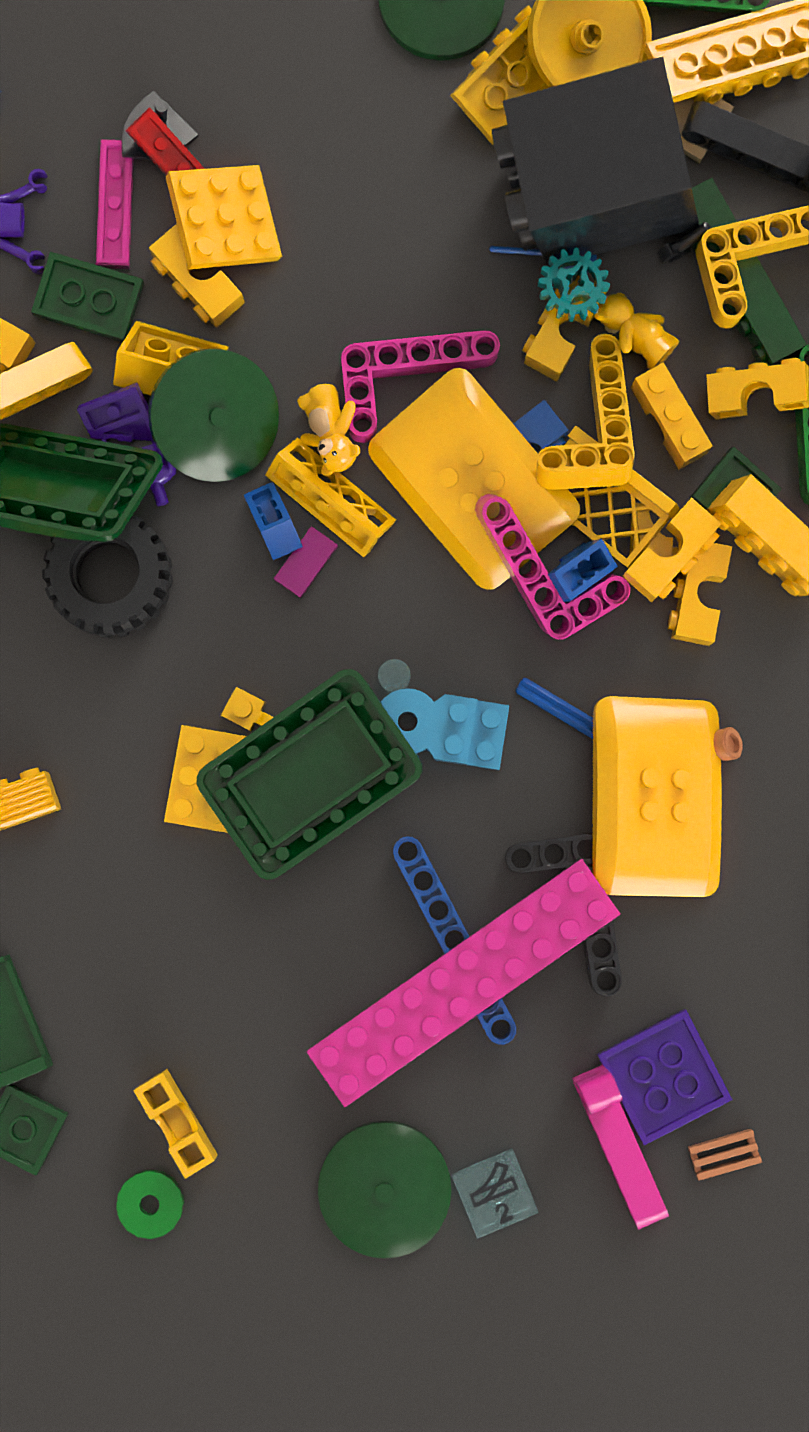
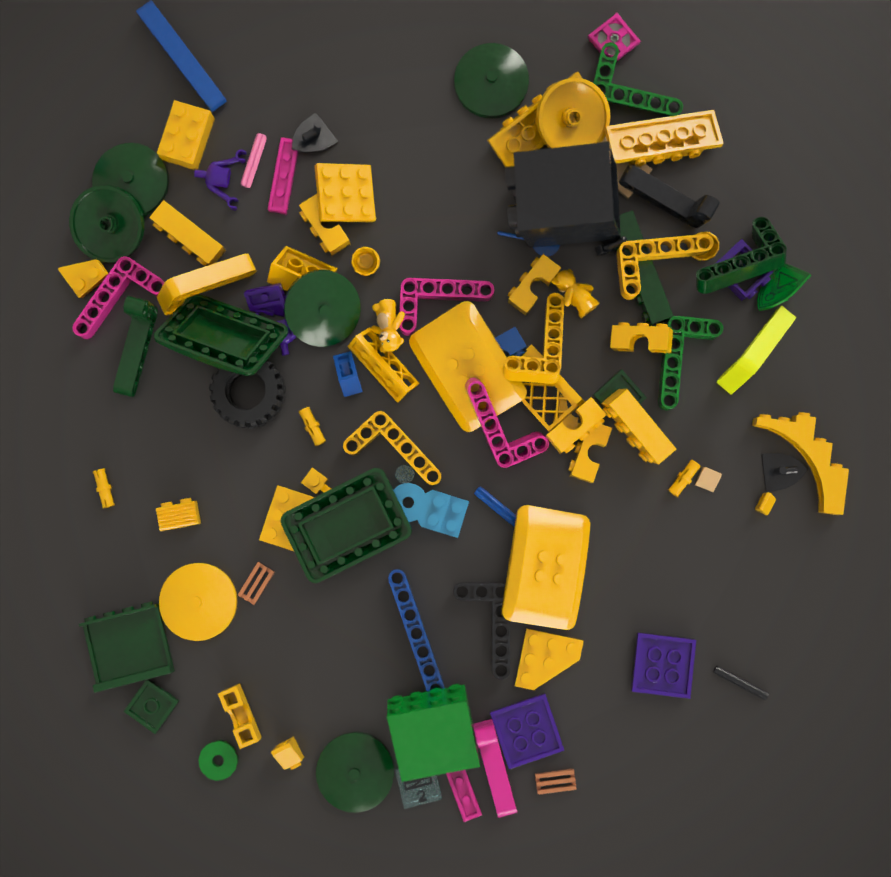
camera: 15 degrees right, 0 degrees up
(60, 185) = (253, 160): none -> bright pink axle
(75, 941) = (198, 601): none -> yellow dish
(87, 297) = (259, 228): dark green plate -> none
(158, 922) = (248, 597): none -> nougat tile
(161, 144) = (315, 146): red tile -> none
(225, 617) = (312, 426): none -> yellow pin
(268, 1175) = (288, 754): none -> yellow slope
(275, 326) = (365, 261): none -> yellow hair
(305, 562) = (363, 401): magenta tile -> none
(372, 626) = (396, 443): none -> yellow beam
(463, 982) = (417, 659): dark pink plate -> none
(508, 1101) = (432, 732): none -> green brick
(562, 1178) = (464, 795): none -> dark pink tile
(582, 569) = (522, 428): blue arch -> none
(584, 291) = (536, 257): teal gear -> none
(675, 949) = (545, 657): none -> yellow plate
(681, 430) = (590, 348): yellow arch -> none
(727, 744) = (592, 542): nougat tile -> none

